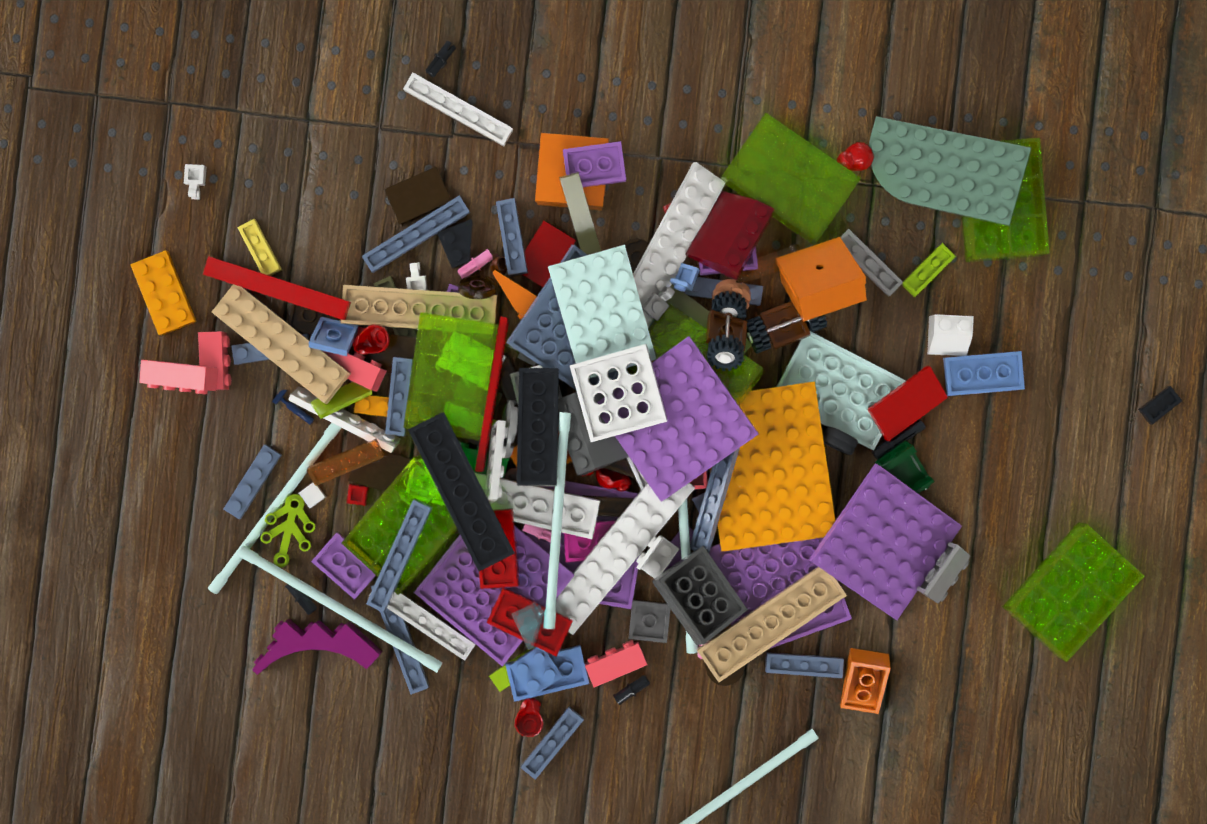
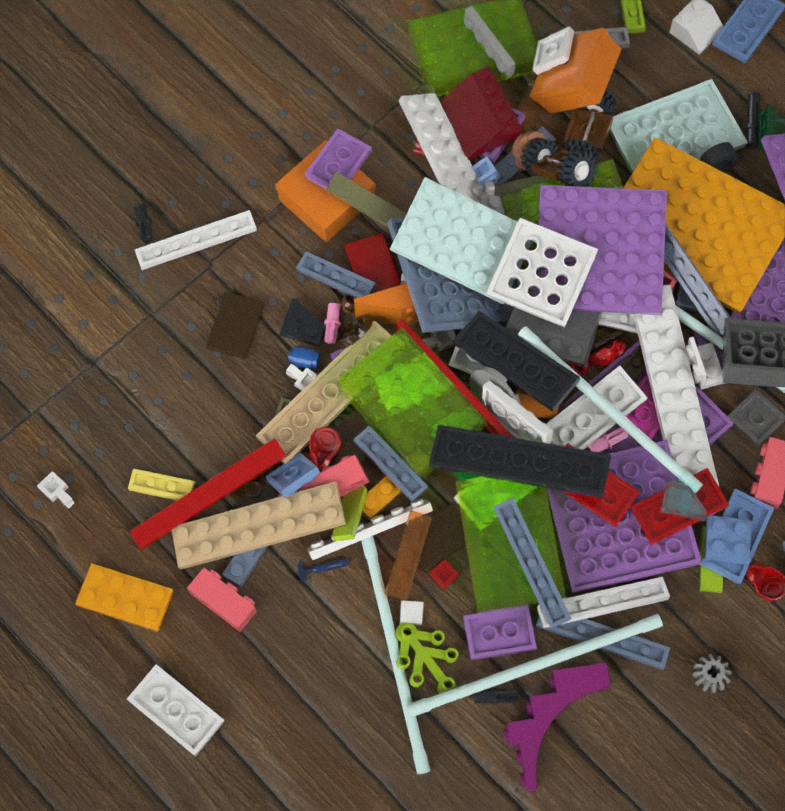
camera: 50 degrees left, 20 degrees down
(117, 394) = (175, 710): none -> white plate
(178, 375) = (209, 634): brick -> none
(252, 481) = (355, 656): sand blue plate -> none
(416, 234) = (265, 350): sand blue plate -> none
(431, 267) = (304, 357): none -> blue brick
(434, 735) = (715, 665): none -> light grey gear
(794, 184) = (489, 41): none -> light grey plate
(824, 248) = (553, 50): none -> white plate
(907, 403) = (728, 91): red tile -> none

